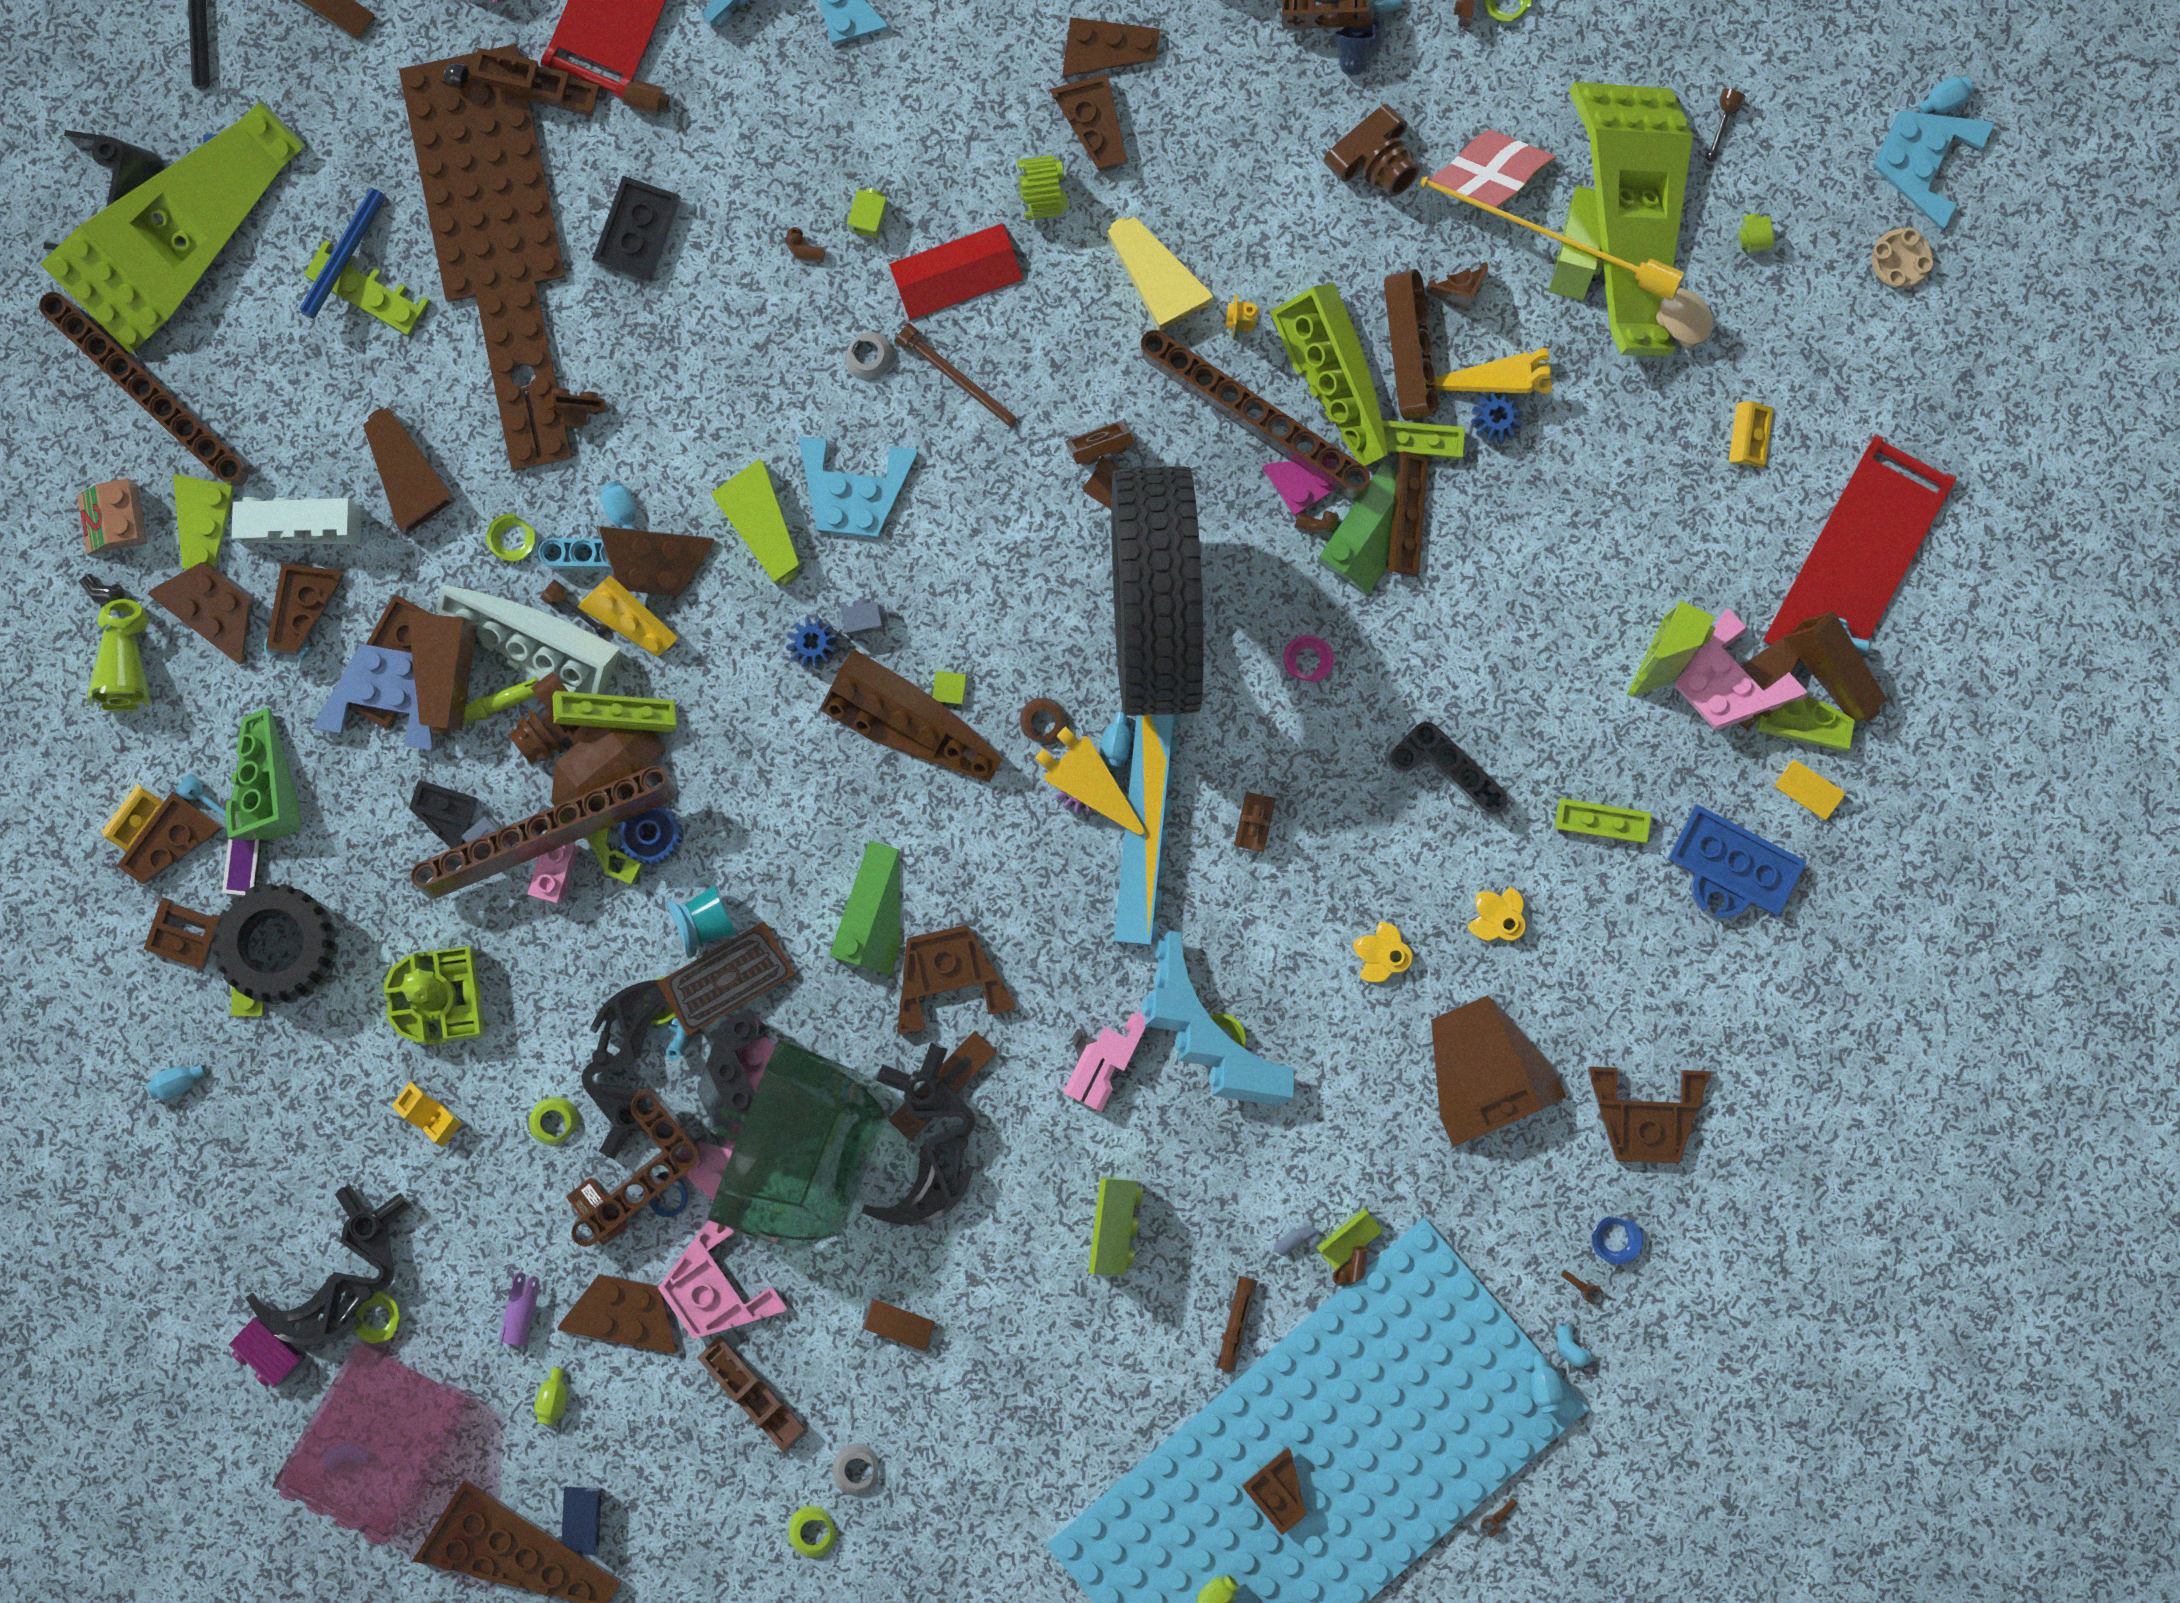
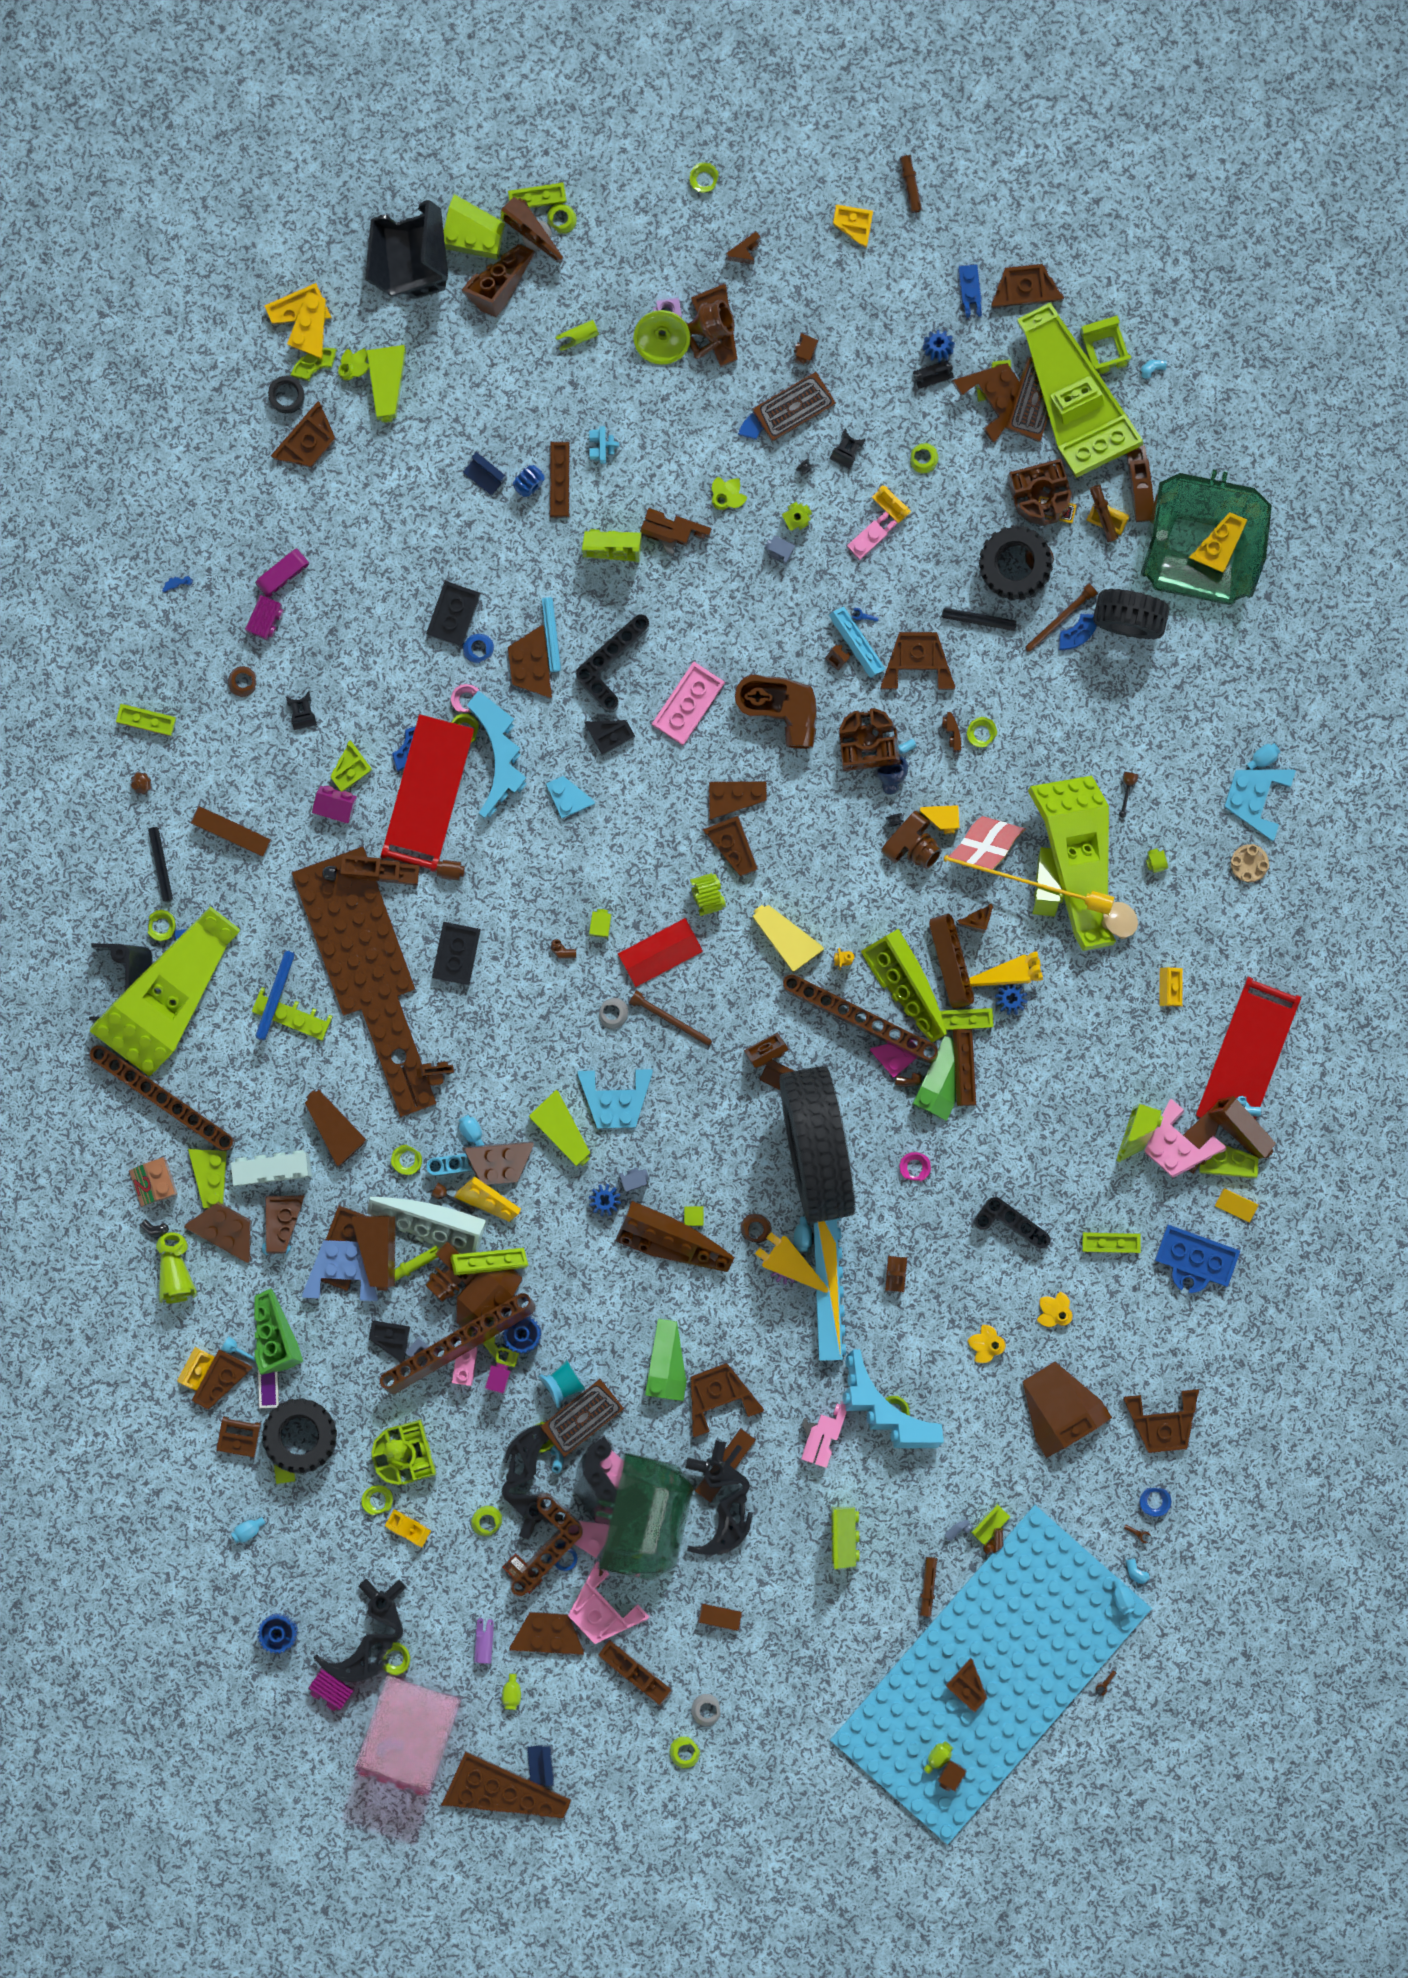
camera: 15 degrees left, 0 degrees up
(178, 108) = (161, 914): none -> lime piece
(212, 1247) = (275, 1622): none -> blue brick
(370, 1054) = (367, 1495): none -> lime piece
(602, 897) = (498, 1378): none -> magenta piece
(1351, 115) = (894, 820): none -> black bush
(1427, 121) = (942, 817): none -> yellow slope

